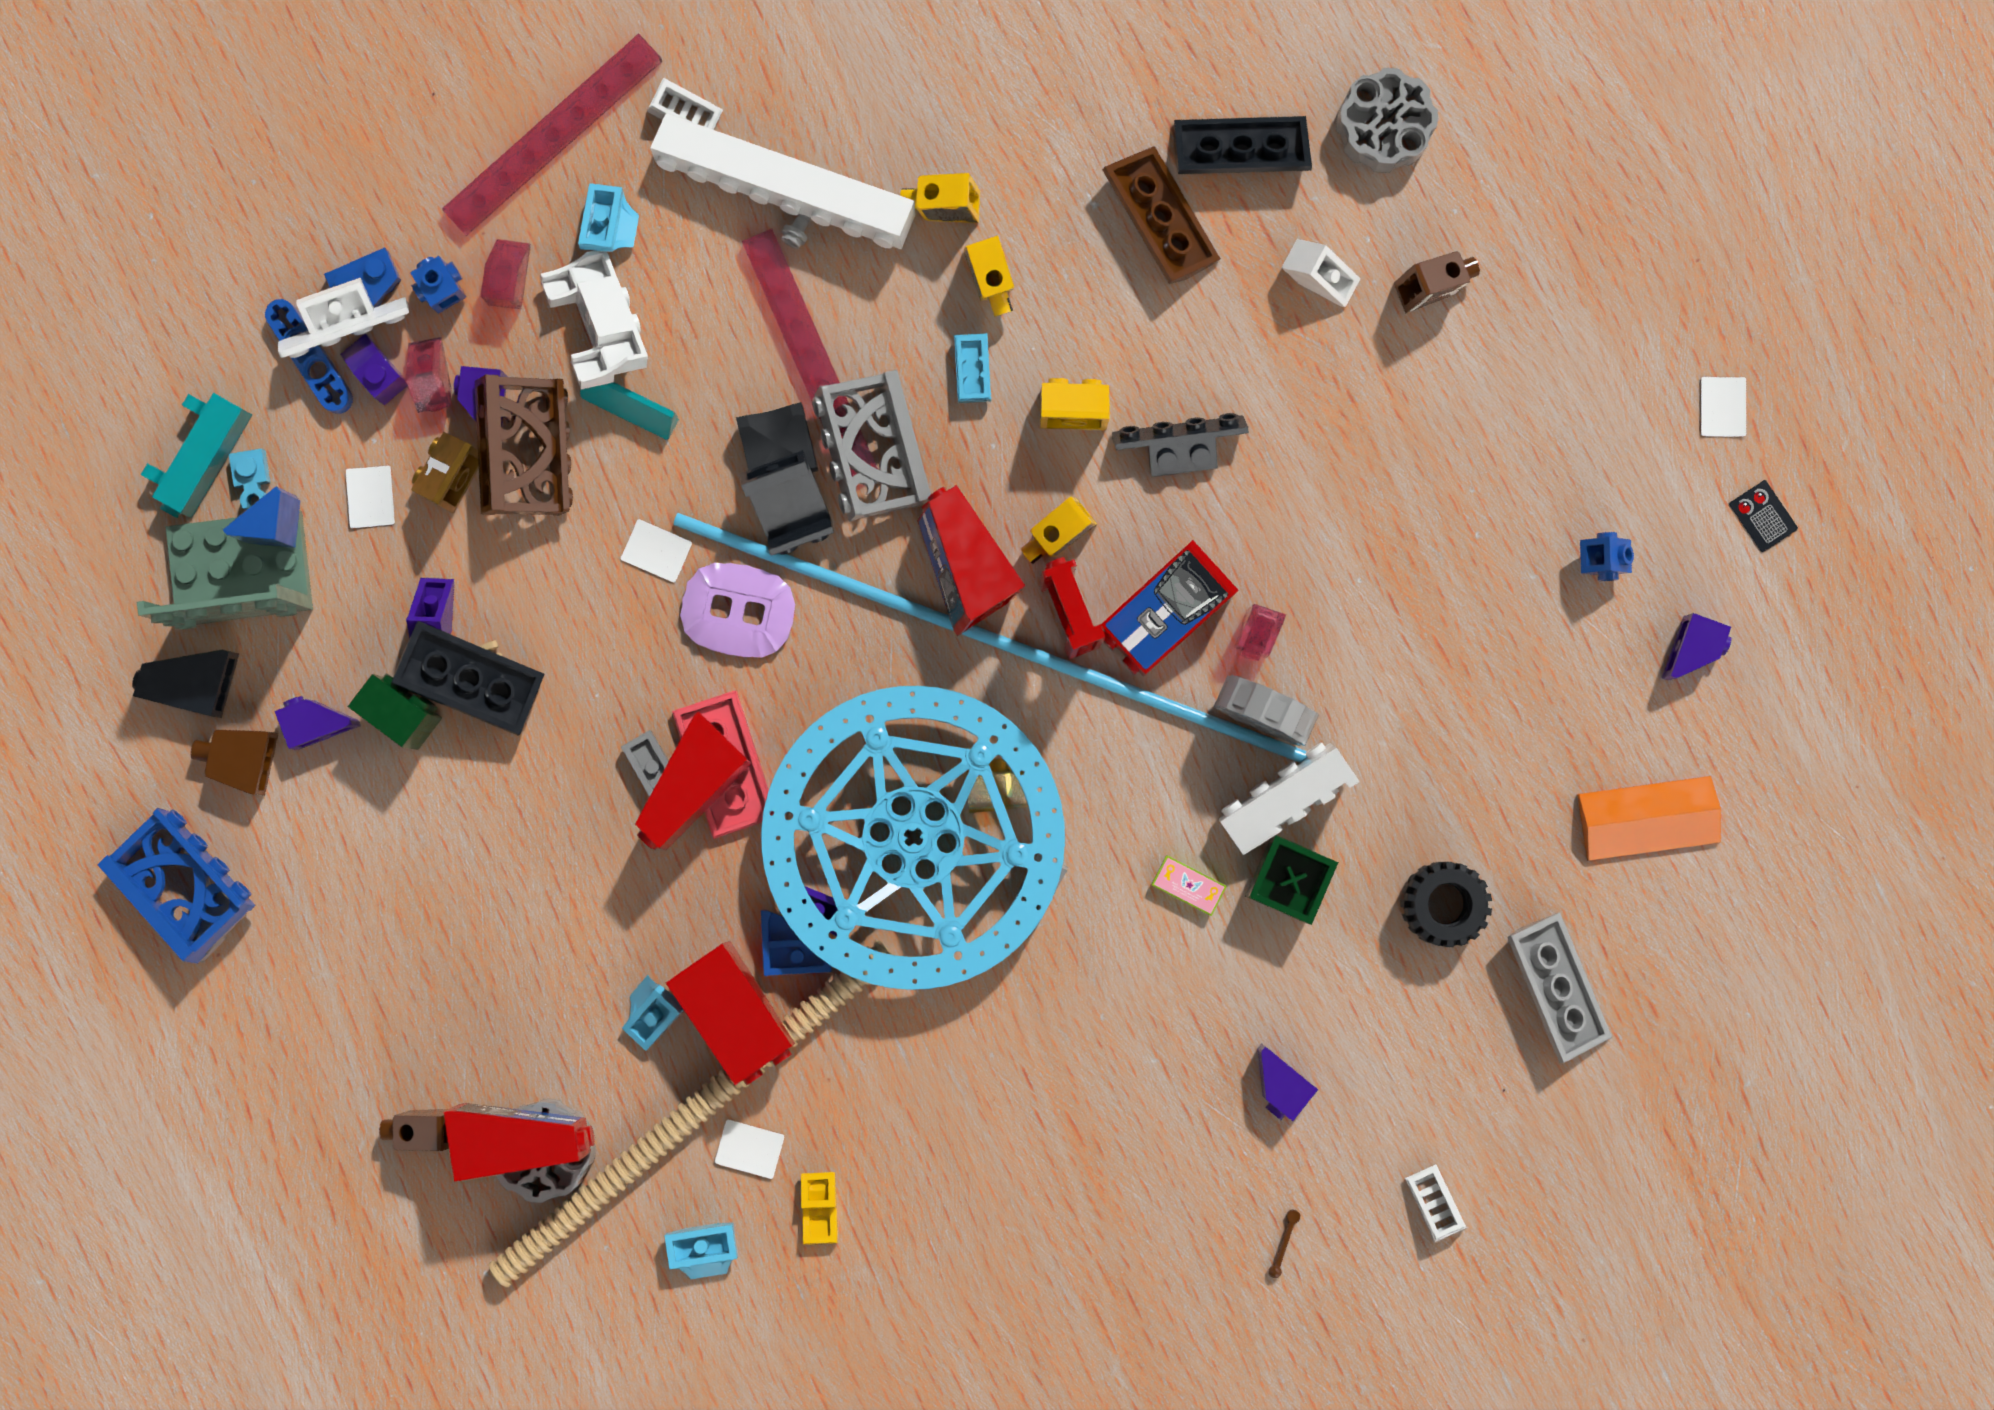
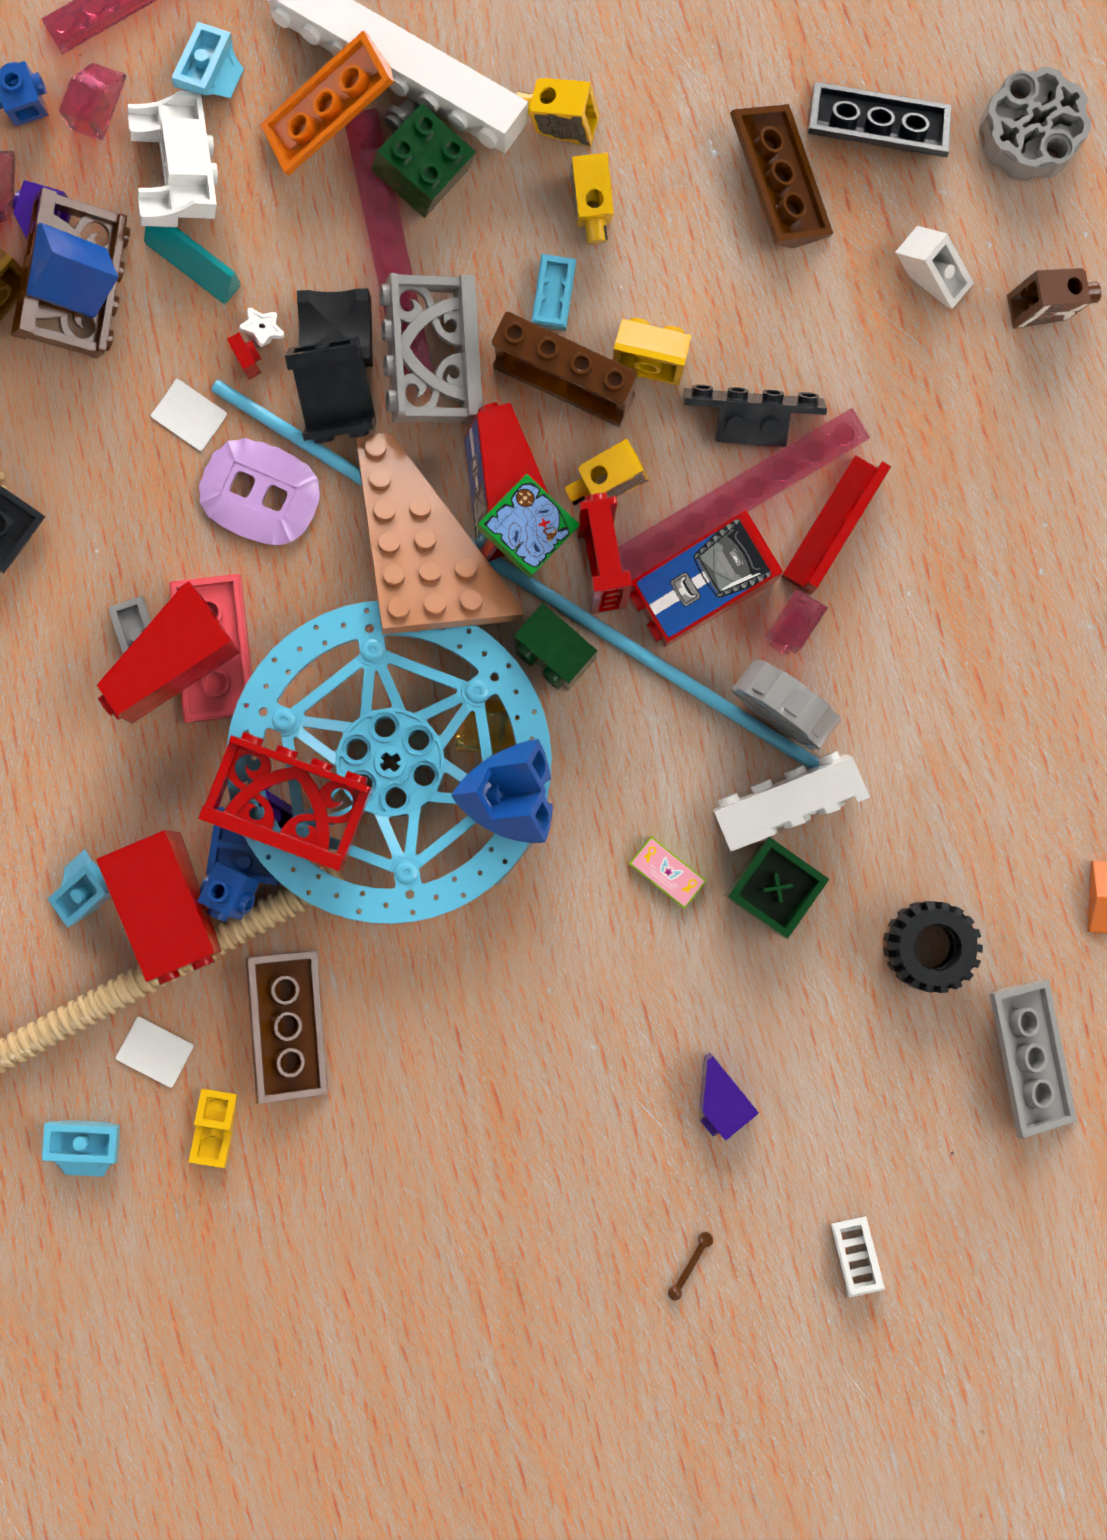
camera: 10 degrees right, 0 degrees up
(526, 445) = (70, 271): none -> blue slope
(699, 485) = (246, 355): none -> red plate
(705, 464) = (255, 333): none -> white plate
(728, 237) = (327, 102): none -> orange slope
(786, 916) = (237, 813): none -> red fence
(790, 988) = (228, 892): none -> blue brick
(827, 272) = (423, 160): none -> dark green brick
(867, 1099) = (286, 1026): none -> reddish brown slope
(902, 640) = (420, 554): none -> nougat wing
(997, 597) = (527, 525): none -> tile
(998, 441) = (563, 369): none -> reddish brown fence
(1030, 844) = (509, 793): none -> blue brick
(1043, 701) = (554, 647): none -> dark green brick
(1185, 521) = (743, 493): none -> clear pink plate
(1277, 531) = (834, 524): none -> red fence

